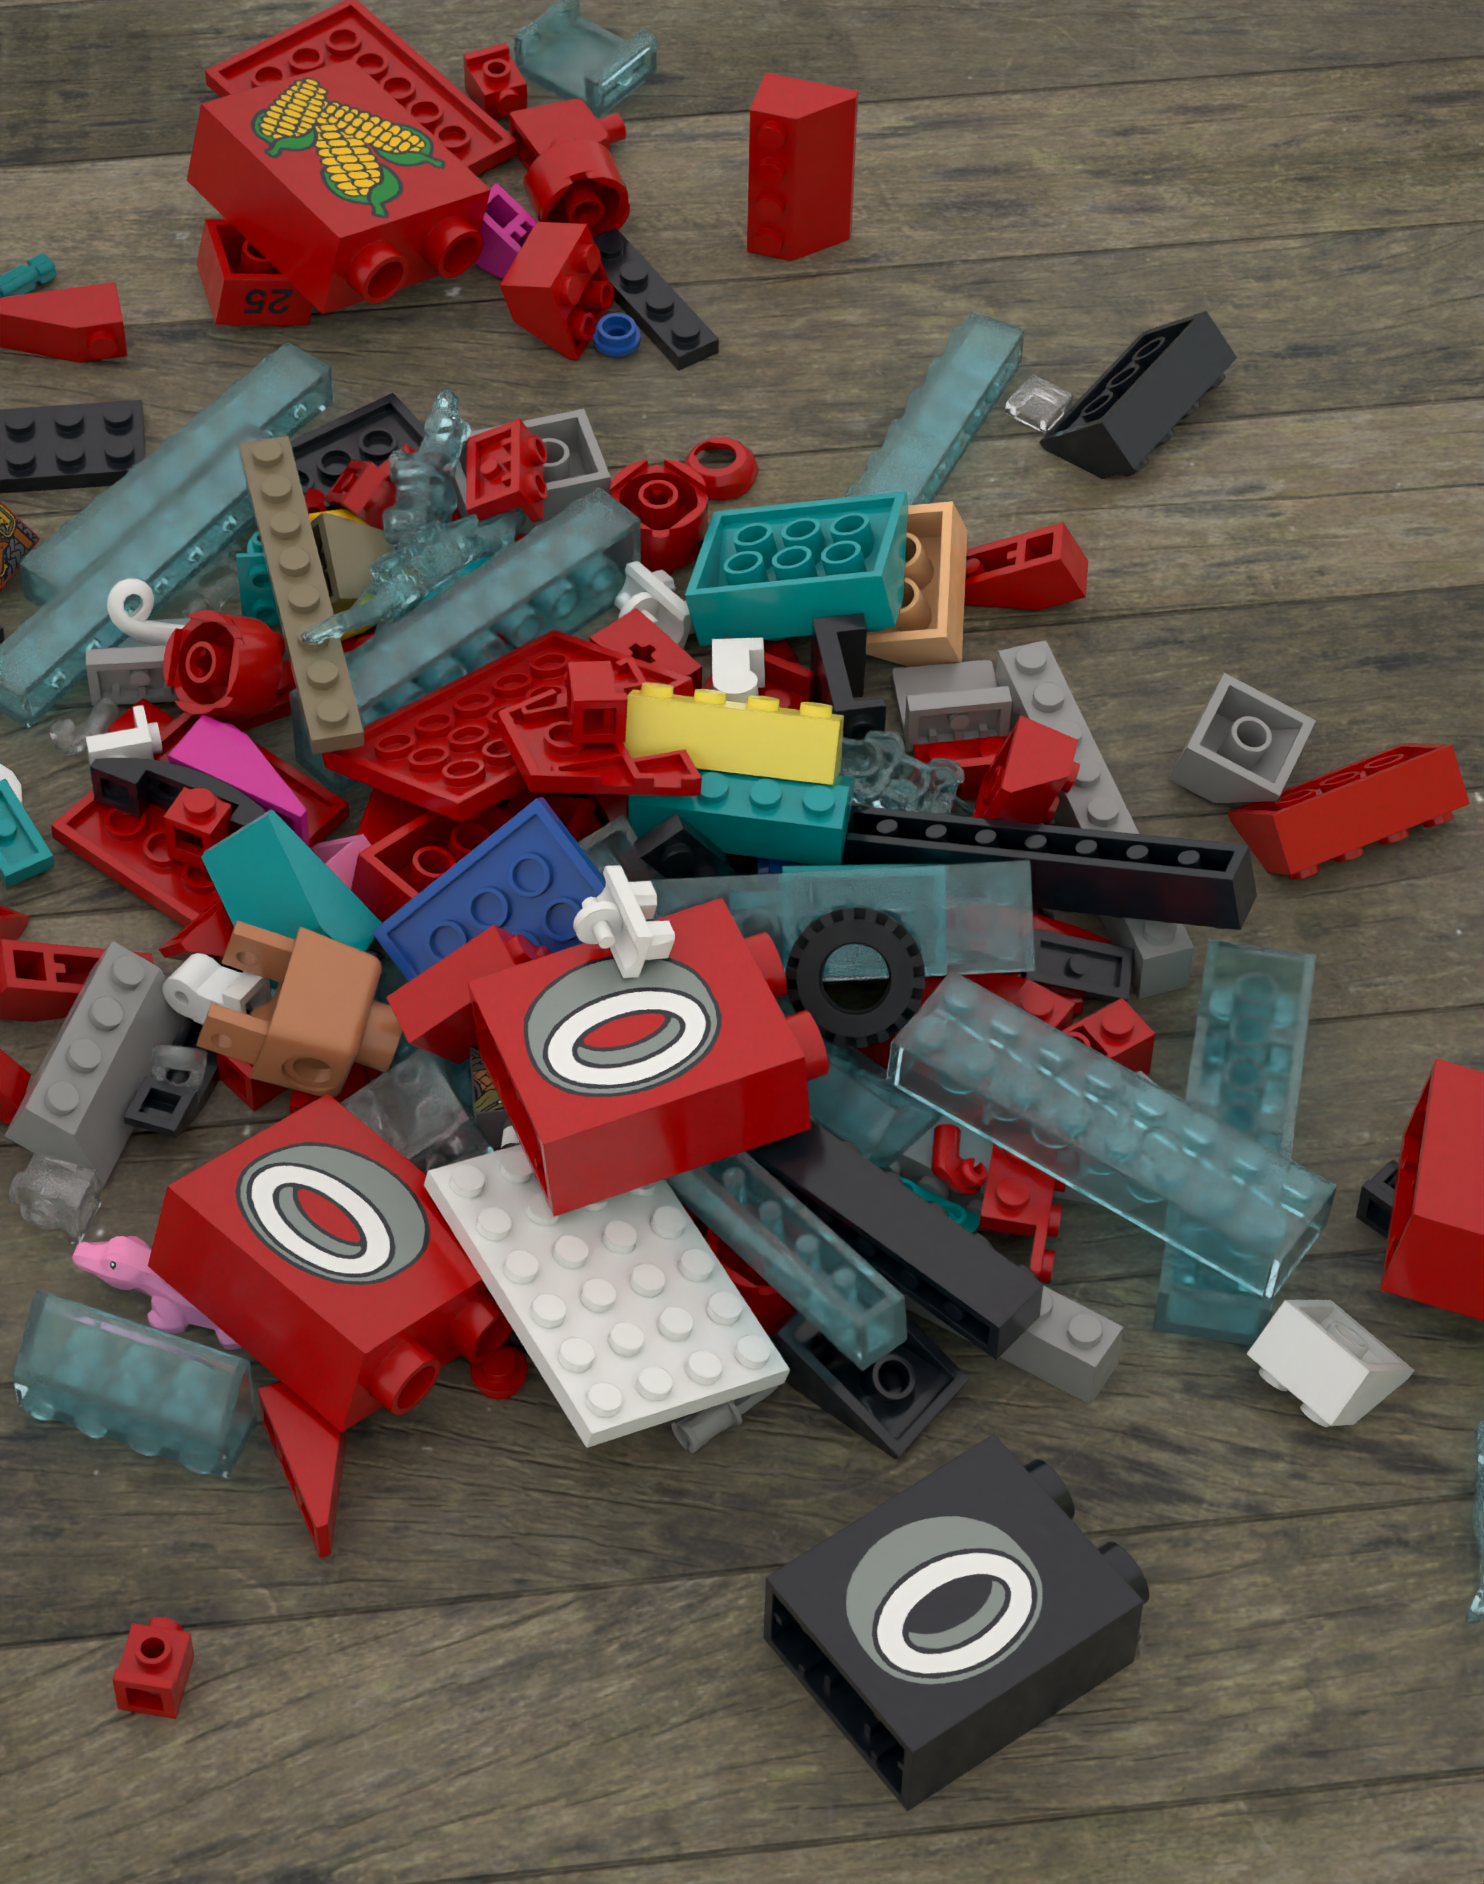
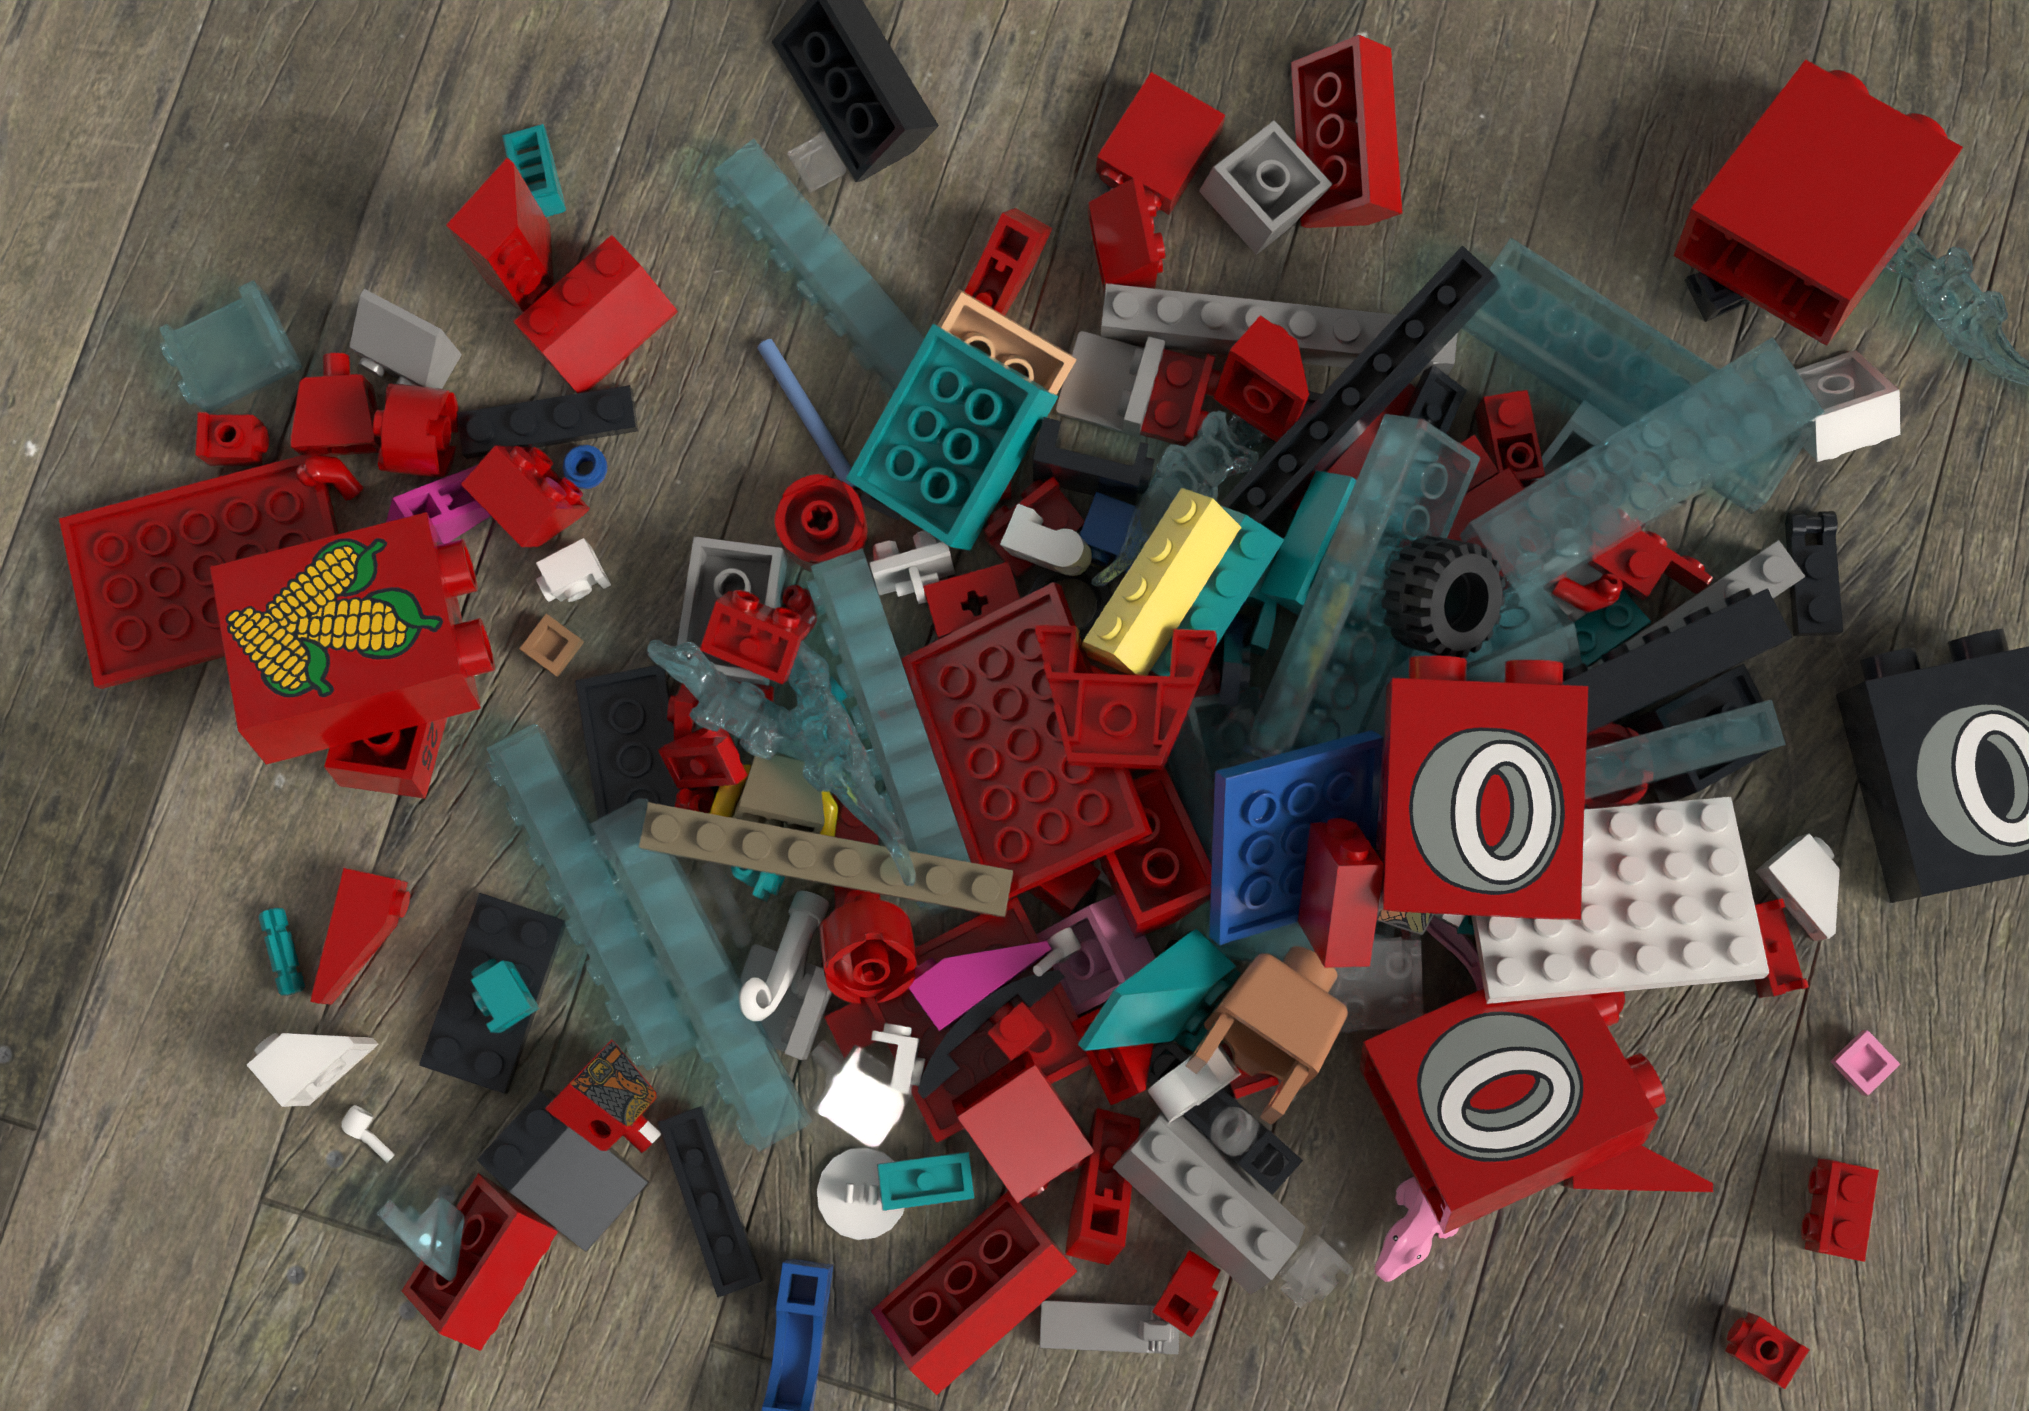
camera: 60 degrees left, 30 degrees up
(43, 432) = (502, 994): none -> teal brick
(58, 750) = (862, 1099): none -> clear piece
(99, 877) = (1023, 1127): none -> brick
(135, 1385) = (1529, 1278): clear light blue slope -> none
(316, 837) = (1063, 945): none -> white hand
(359, 1693) = (1840, 1209): none -> red bracket
(420, 369) = (551, 645): none -> medium nougat plate
(503, 151) = (329, 470): none -> red arm
(503, 357) = (571, 573): none -> white brick
(550, 1658) = (1865, 1062): none -> bright pink plate
(595, 703) = (1108, 682): red brick -> none
(619, 922) = (1400, 773): white hips -> none
(641, 1514) = (1779, 951): none -> red hinge
(656, 159) = (401, 344): none -> light grey slope
(728, 481) = (790, 460): red piece -> none
(736, 1519) = (1807, 883): none -> white slope
(773, 287) = (595, 316): none -> red slope
(788, 466) = (805, 410): none -> medium blue bar
(887, 206) = (548, 192): none -> teal slope
(1113, 653) = (1124, 236): none -> red slope
(1117, 1415) = (1817, 596): none -> black plate
(1235, 638) = (1161, 140): none -> red brick

